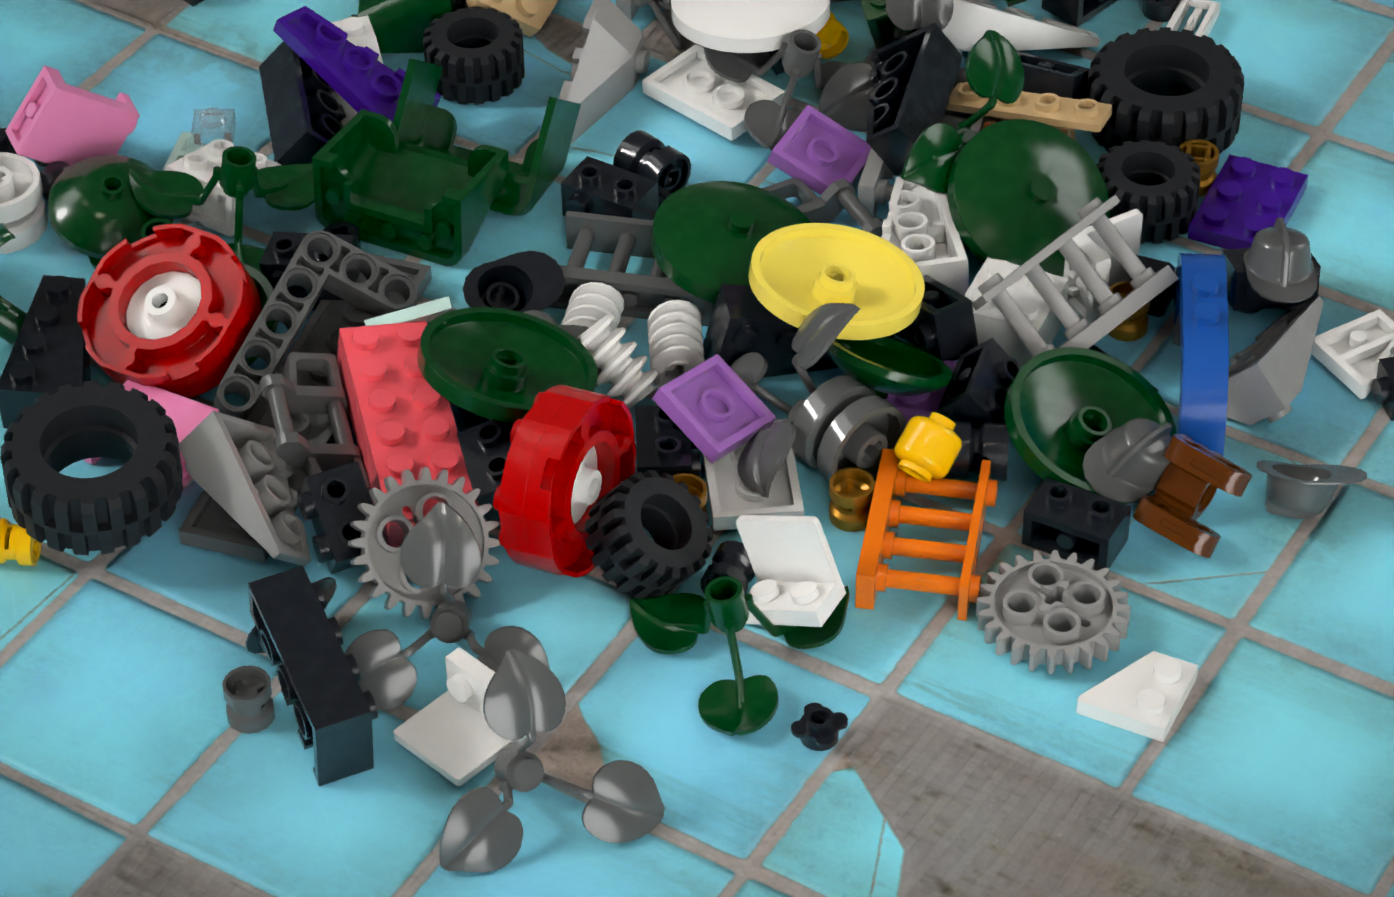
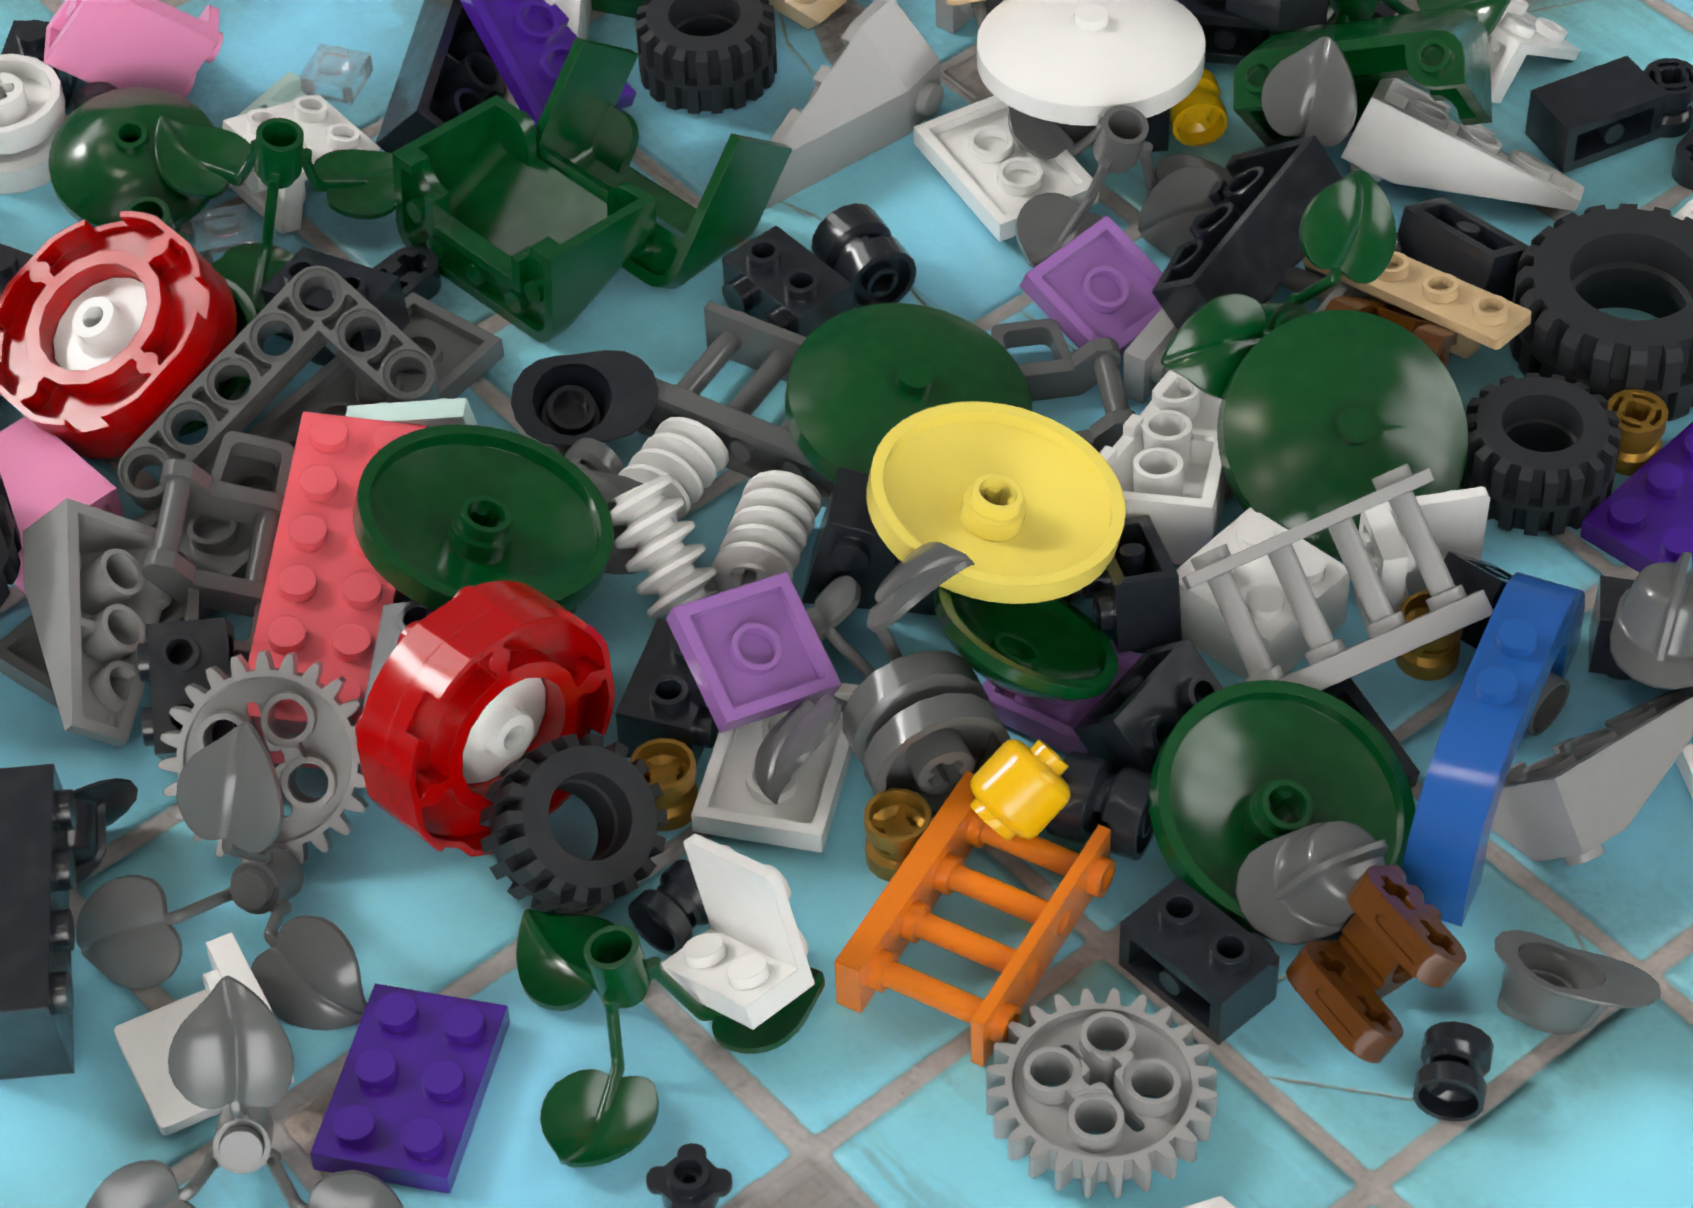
camera: 20 degrees right, 5 degrees up
(609, 716) = (411, 1087): none -> dark purple plate
(1260, 548) = (1453, 1071): none -> black wheel

